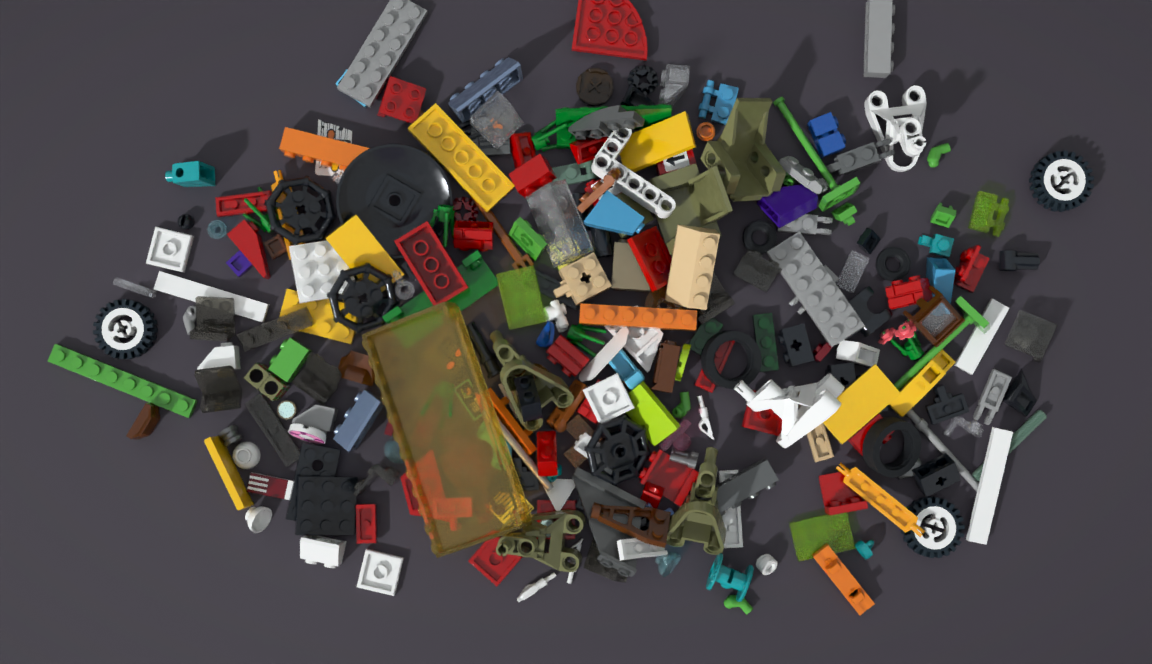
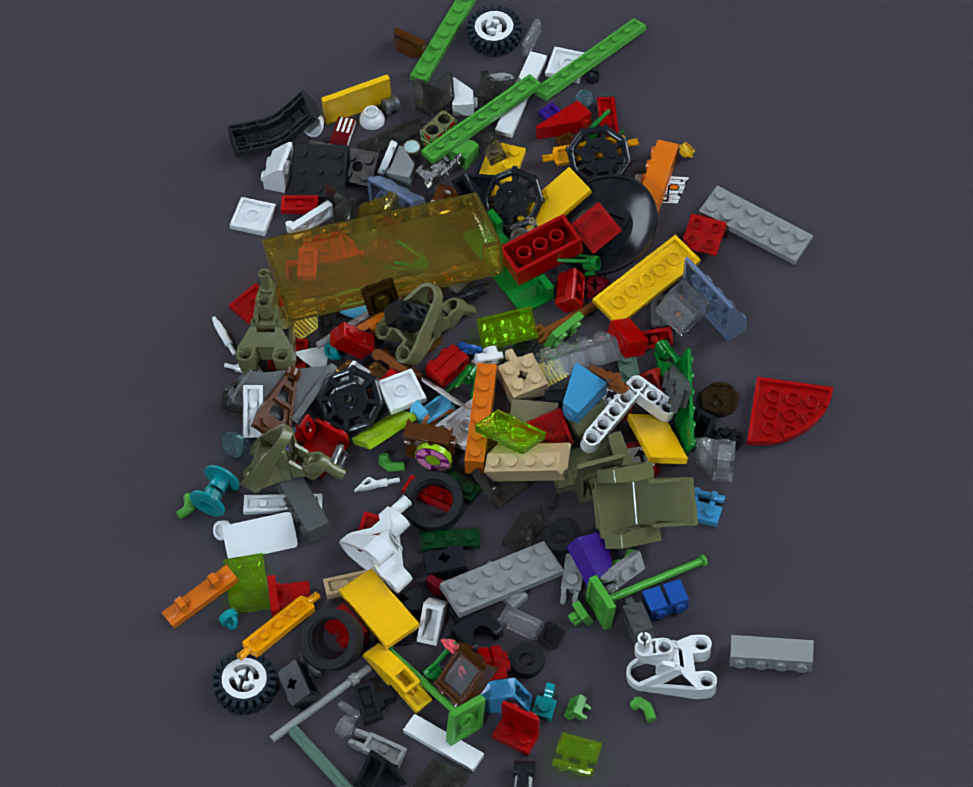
camera: 90 degrees right, 30 degrees down
(166, 223) = (590, 59): none -> bright green tile
(191, 174) = (635, 71): teal torso -> none
(256, 335) = (481, 119): none -> bright green tile
(271, 558) = (275, 129): none -> black piece
(287, 120) = (686, 150): none -> yellow plate
(316, 270) = (543, 161): white plate -> none
(351, 338) = (472, 183): none -> black slope
(375, 440) = (377, 206): none -> clear yellow plate
(388, 510) = (311, 219): none -> white hinge
(402, 210) = (596, 227): none -> red bracket
(504, 426) = (374, 291): none -> dark brown piece
(668, 284) = (510, 431): none -> clear neon green plate
(679, 439) = (359, 456): clear pink tile -> none
(773, 527) = (260, 535): none -> white sticker
(989, 485) = (283, 736): white tile -> none

